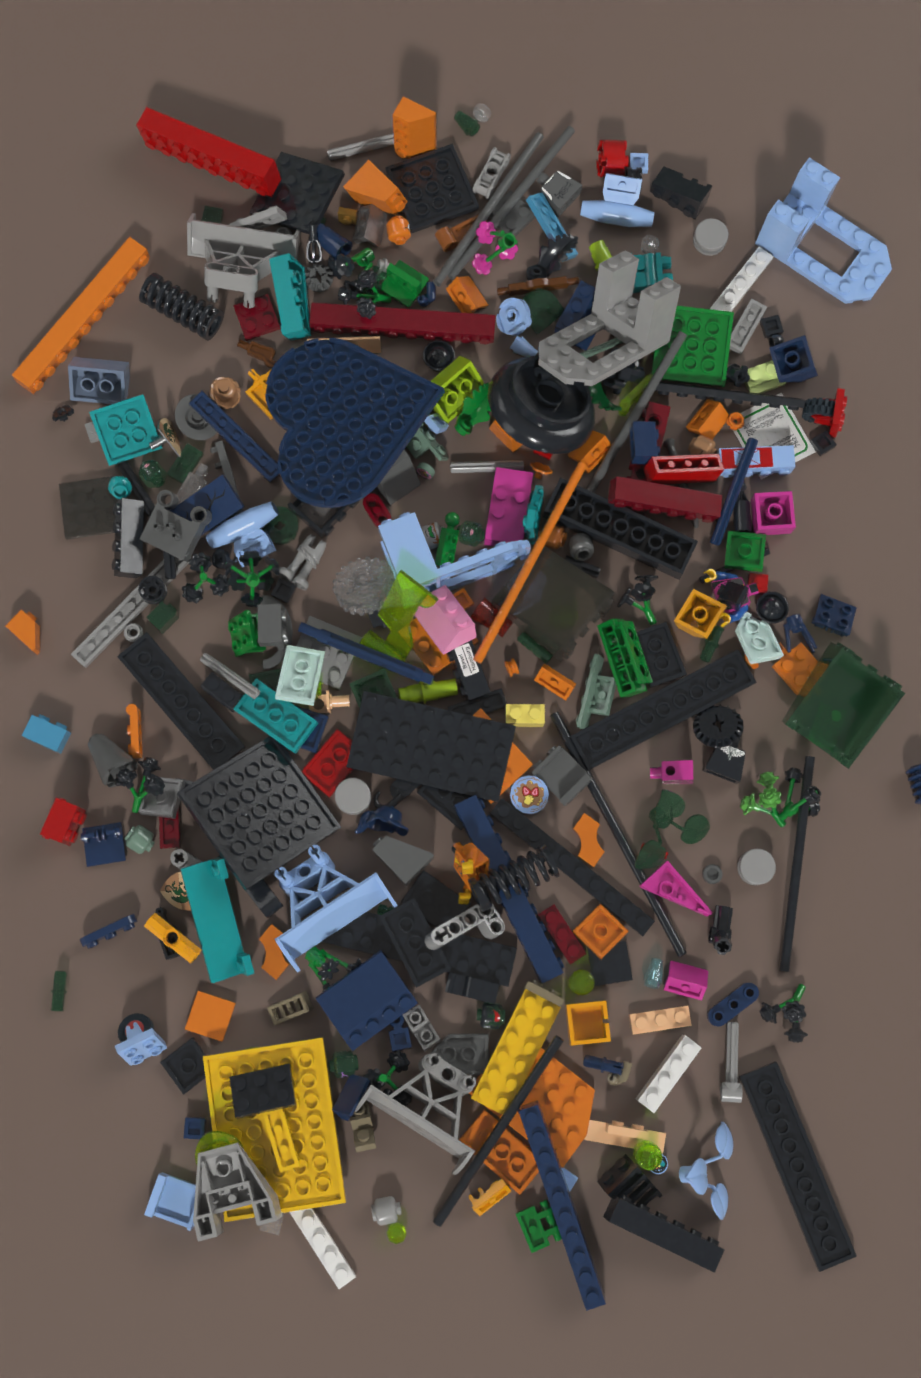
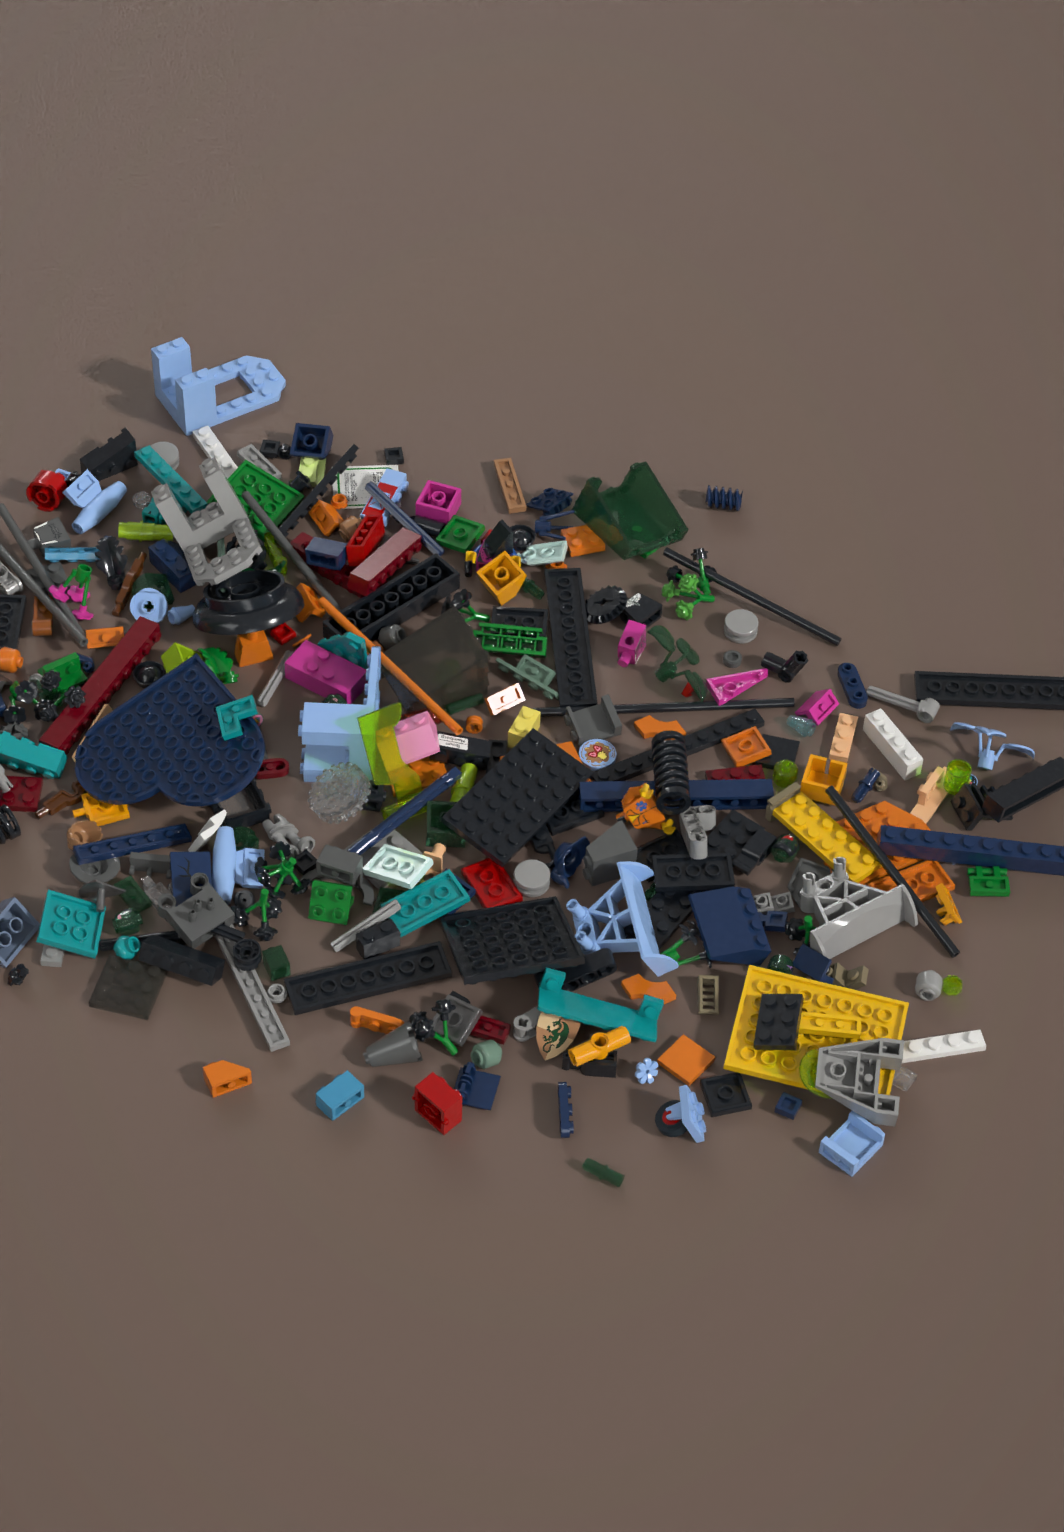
camera: 65 degrees left, 30 degrees down
(180, 985) = (646, 1071): none -> light blue plant
(278, 494) = (207, 831): none -> white slope
(373, 454) = (231, 714): none -> teal plate
(681, 247) = (166, 474): none -> teal plate
(791, 1011) = (877, 635): black plant -> none
(827, 411) = (372, 435): plate -> none
(836, 569) = (509, 485): none -> medium nougat plate

